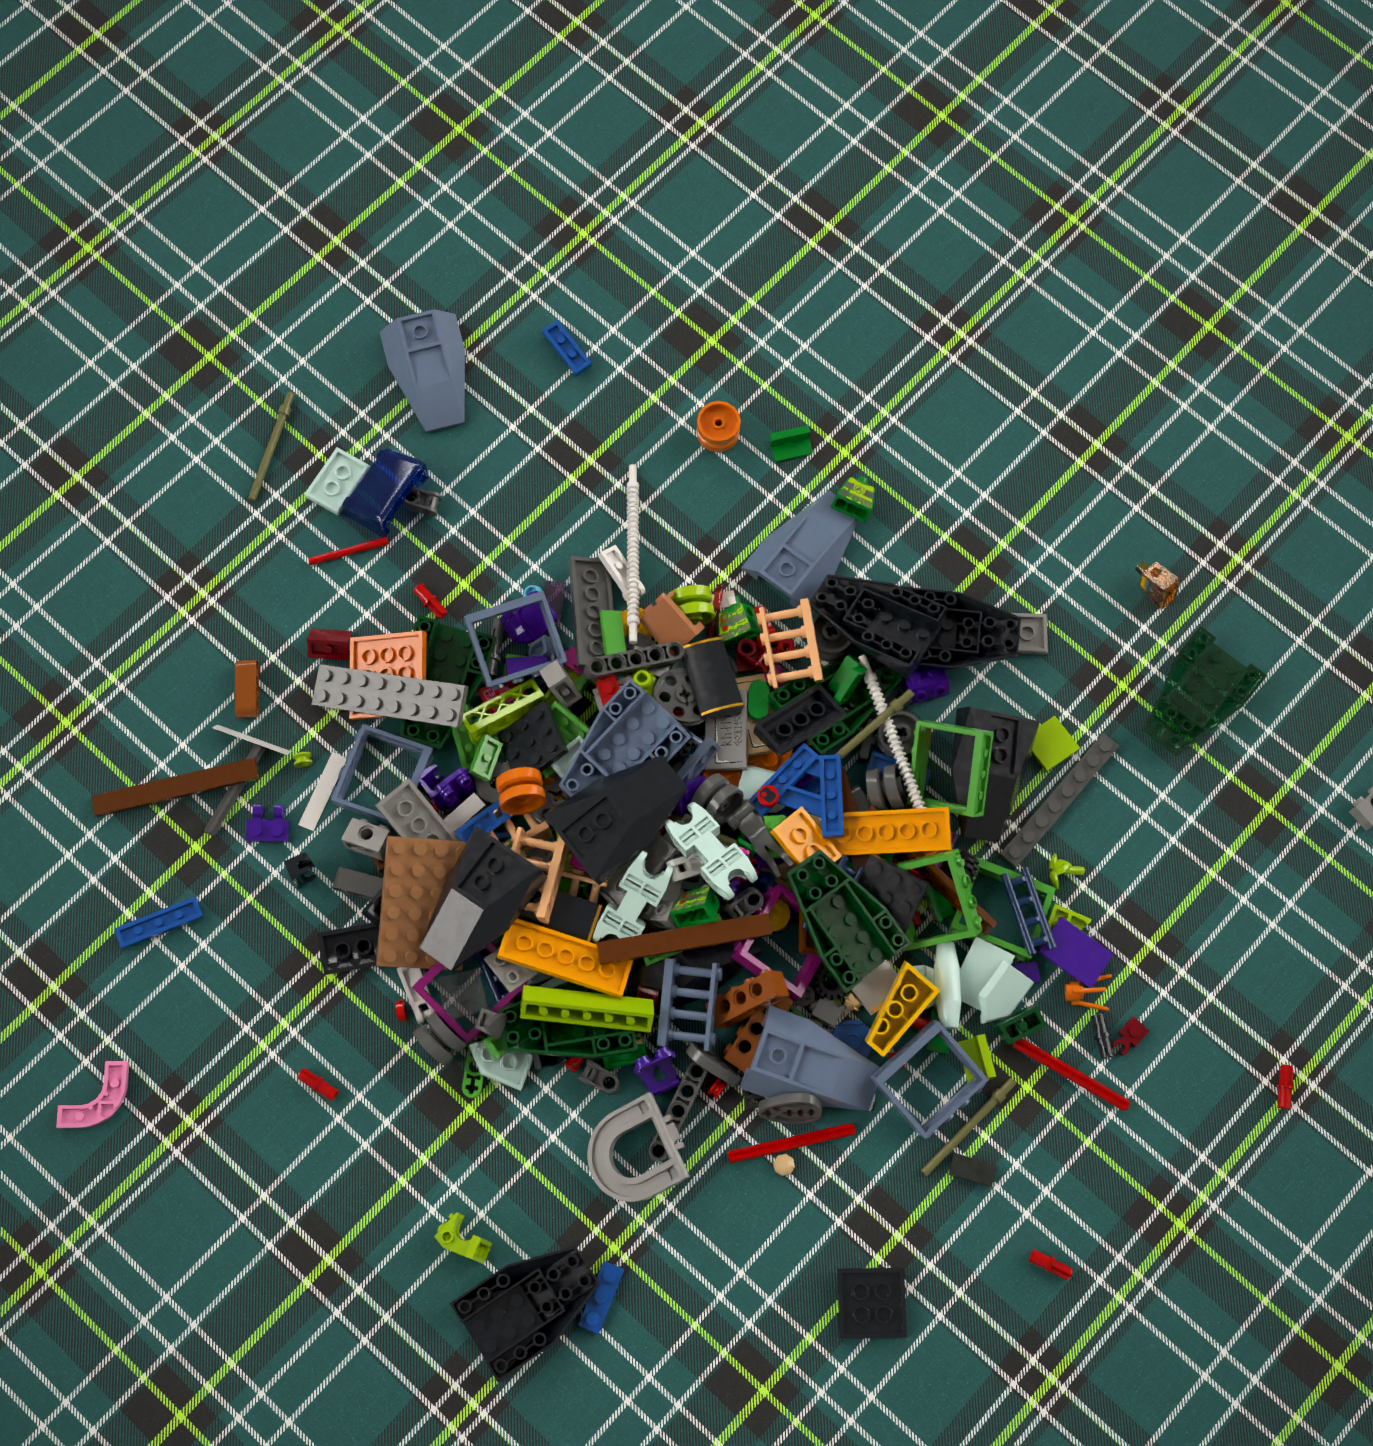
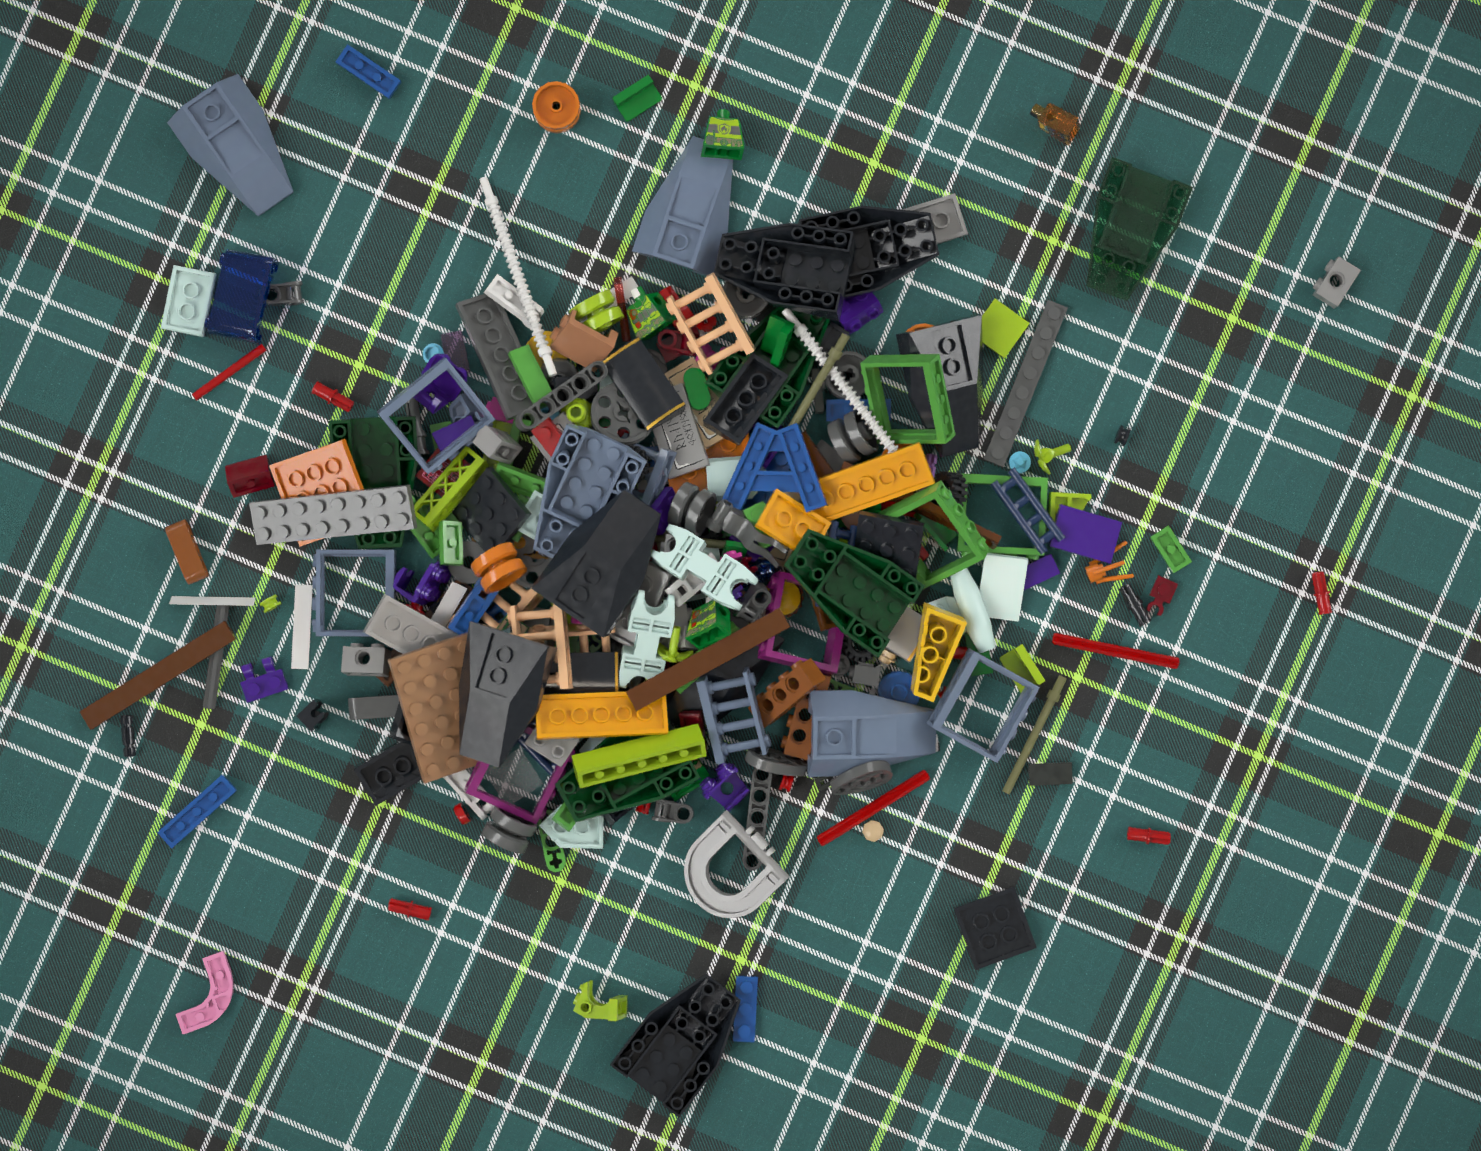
camera: 20 degrees left, 15 degrees up
(125, 833) = (128, 736): none -> black axle
(284, 412) = (104, 245): olive bar -> none
(491, 1022) = (553, 799): dark grey tile -> none
(652, 923) = (672, 654): none -> lime plant
(768, 796) = (740, 489): red tile -> none
(1003, 993) = (1028, 597): light aqua tile -> none
(1020, 1024) = (1053, 623): dark green brick -> none
(1035, 867) = (1020, 461): none -> medium azure tile
(1136, 876) = (1122, 435): none -> black bush
(1151, 996) = (1170, 549): none -> bright green plate

